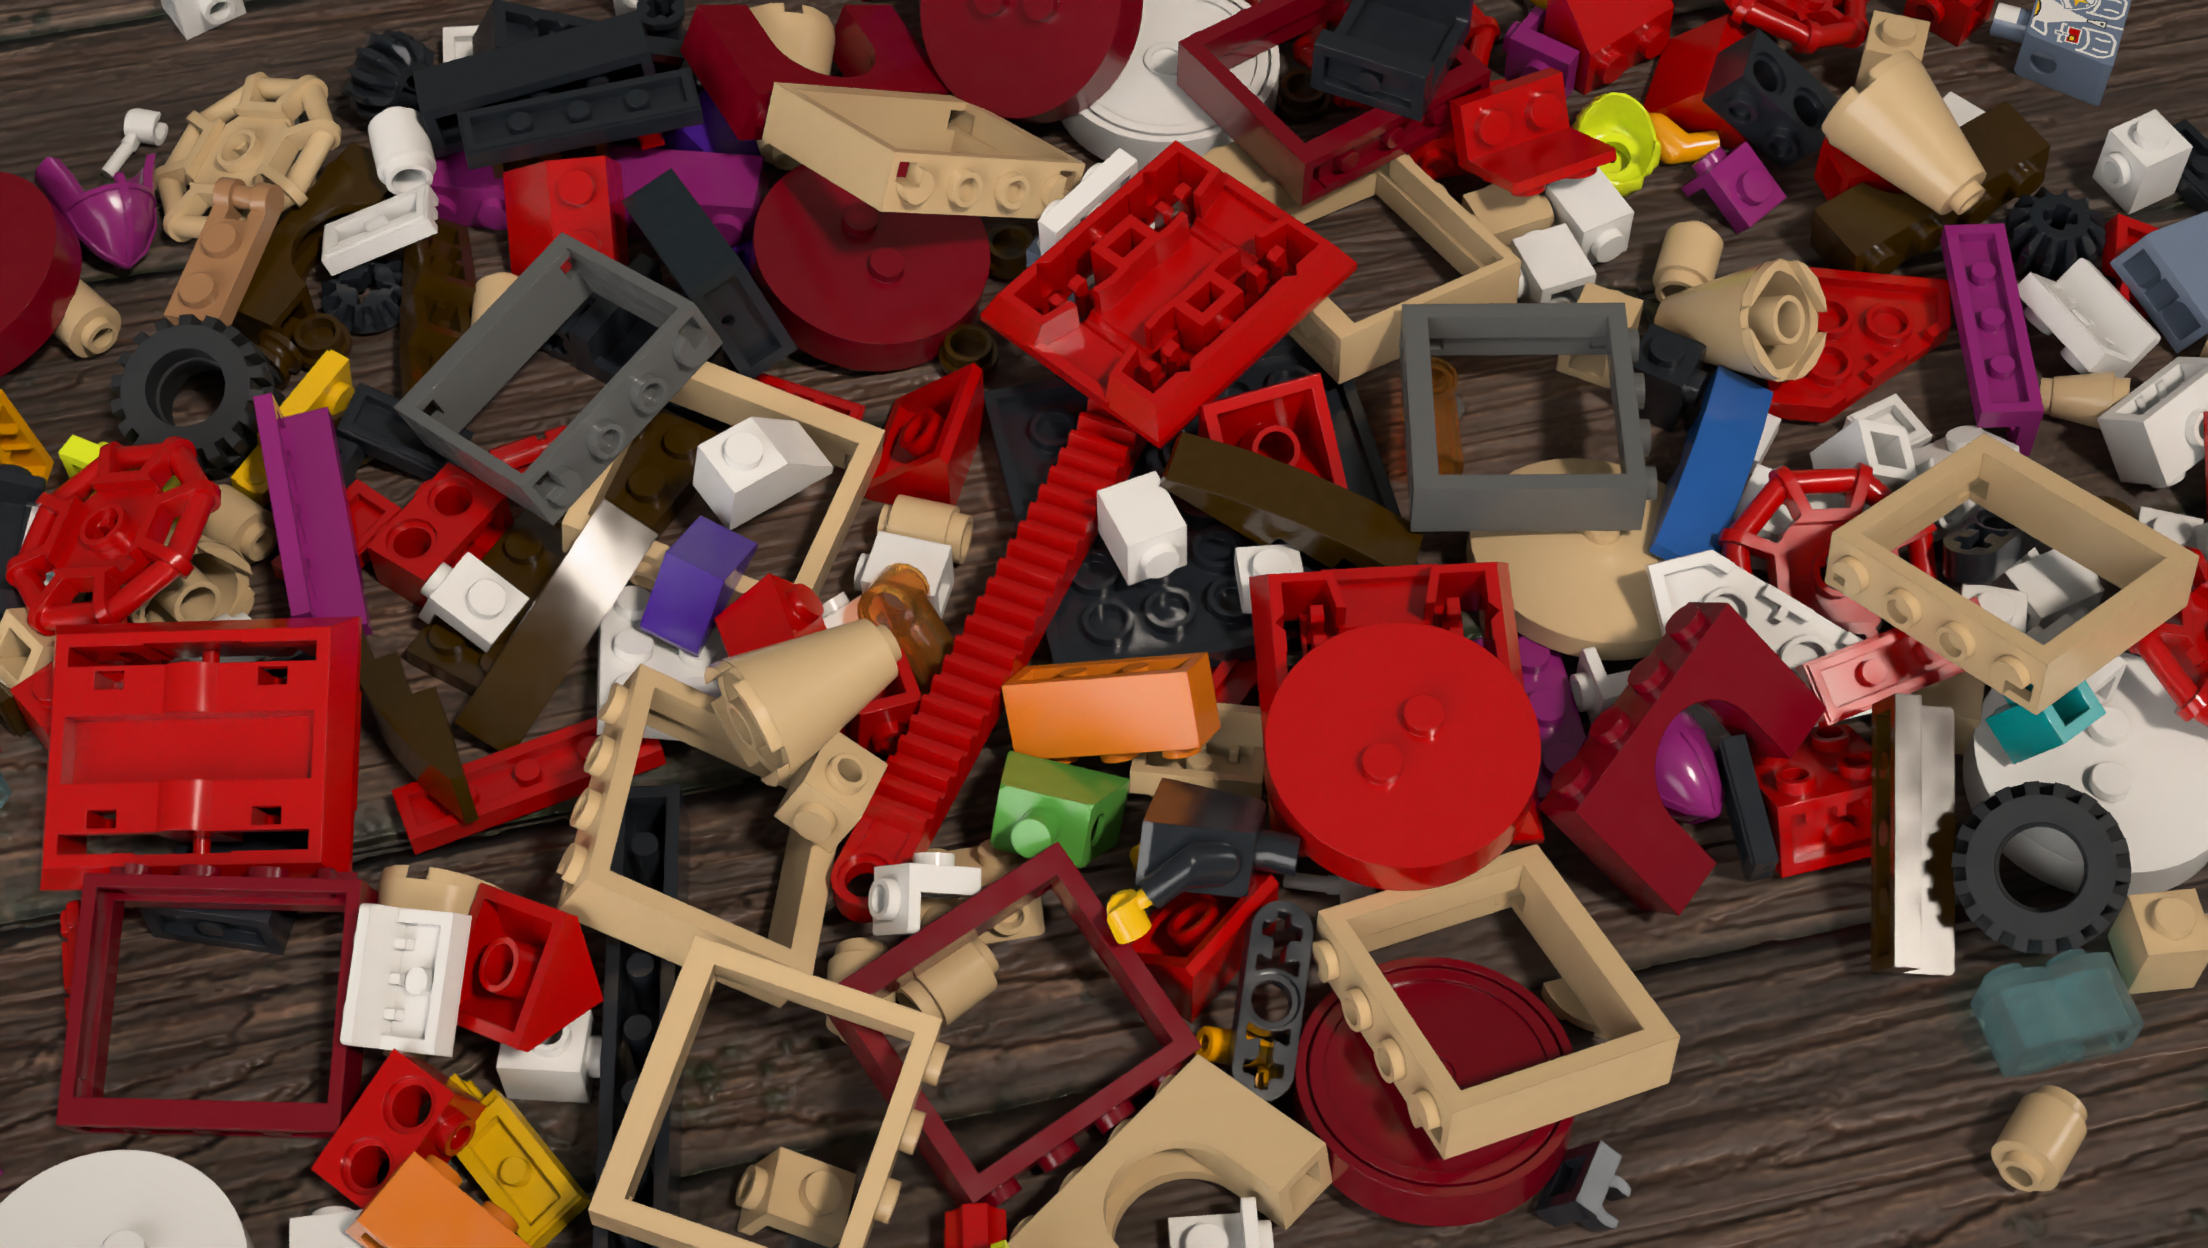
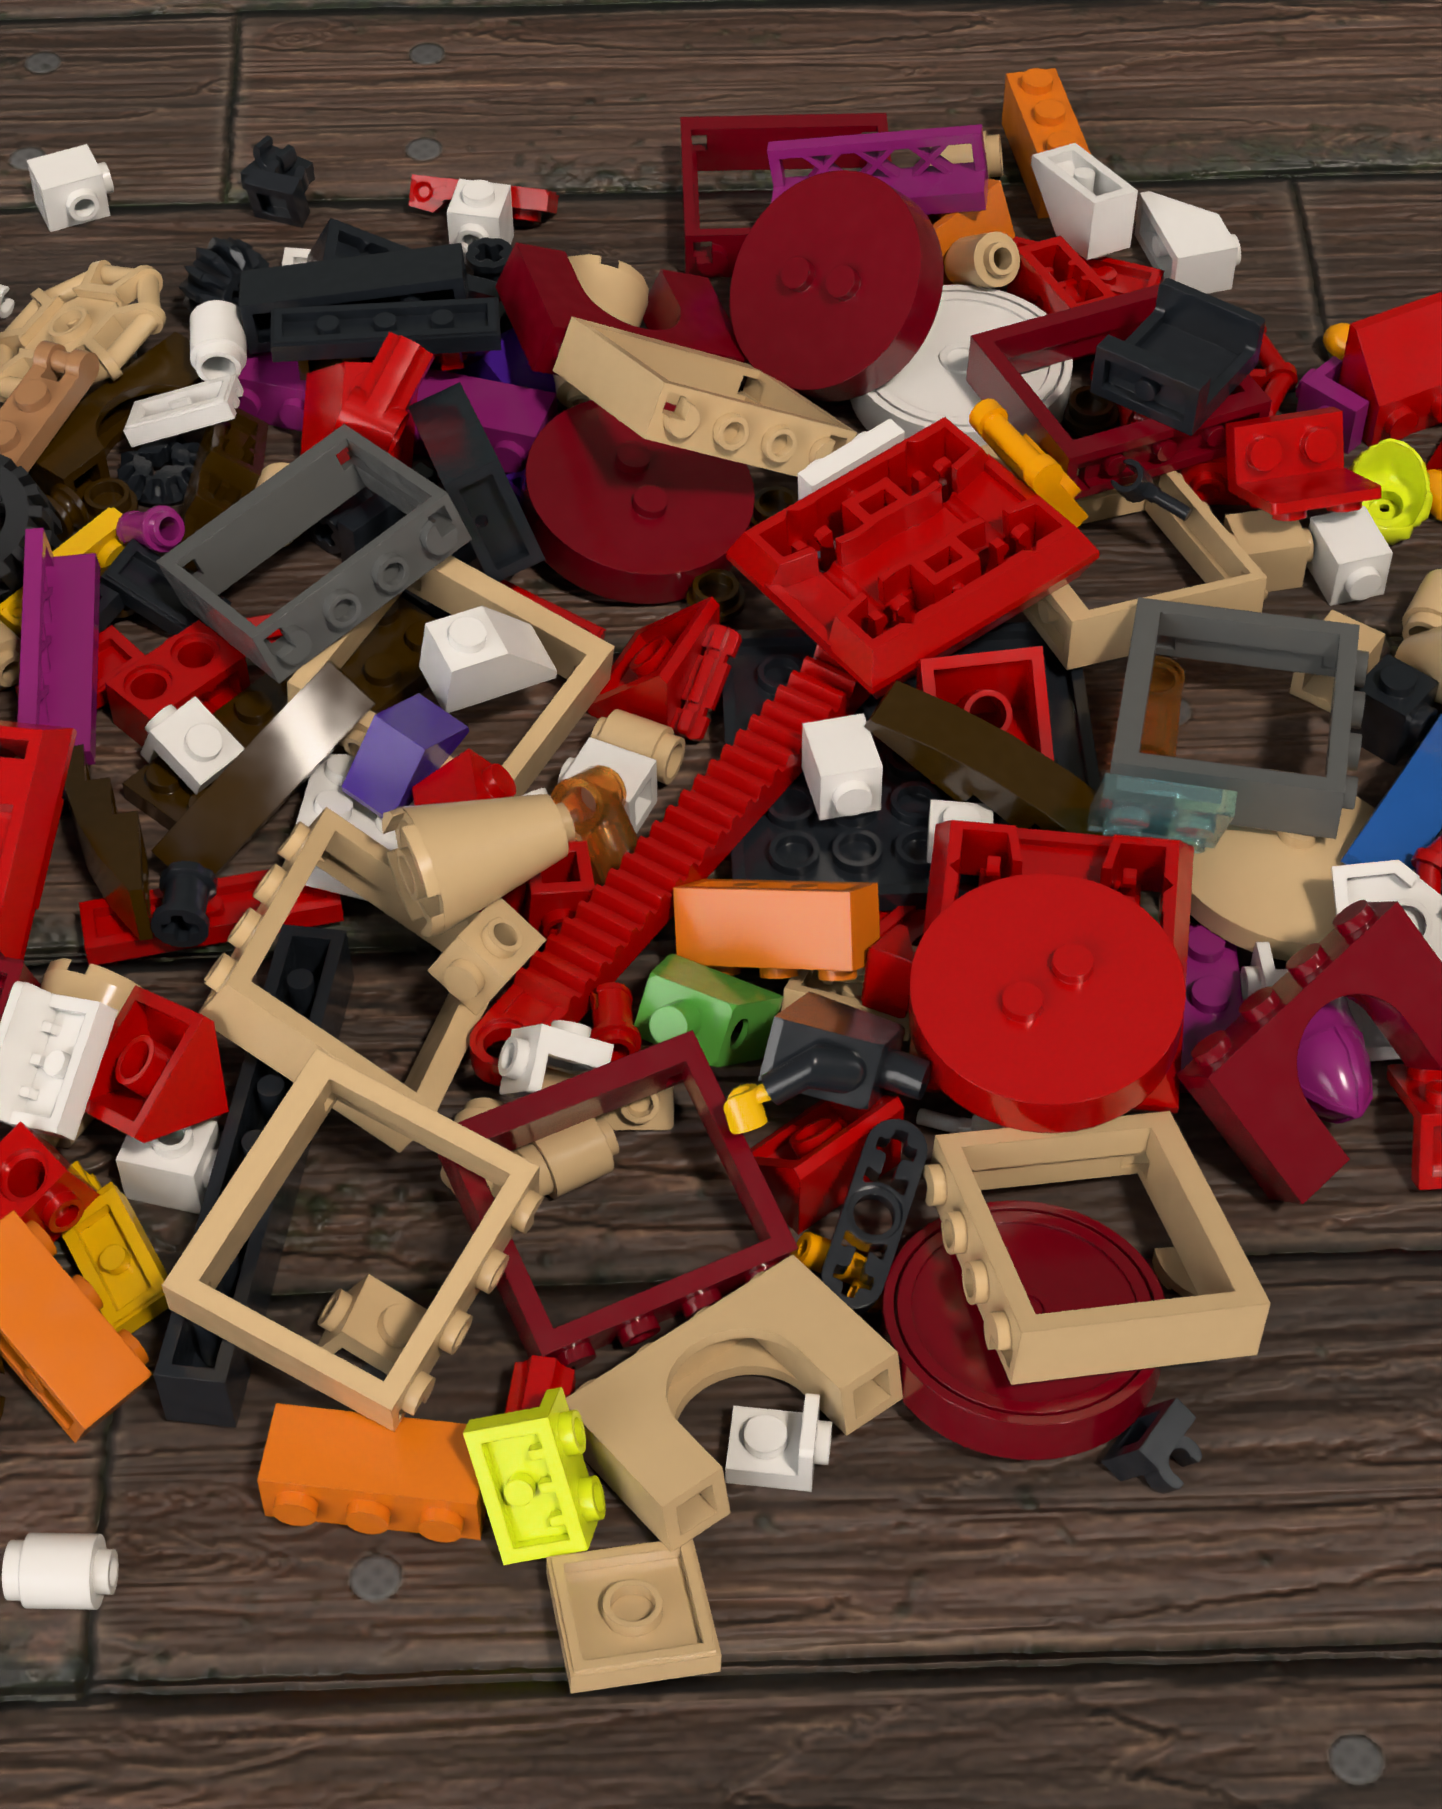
camera: 10 degrees right, 5 degrees down
(384, 368) = (157, 528): none -> magenta pin
(504, 777) = (182, 913): none -> black bush
(594, 204) = (382, 401): none -> red piece
(971, 837) = (614, 1019): none -> red pin
(981, 451) = (706, 682): none -> red axle
(1235, 741) = (888, 973): none -> red slope
(1264, 173) = (1027, 460): none -> light orange plate
(1383, 182) = (1144, 489): none -> black hand
(1480, 533) = (1161, 810): none -> clear light blue plate
(1551, 266) = (1300, 588): white brick -> none
(1746, 809) = (1391, 1115): black tile -> none

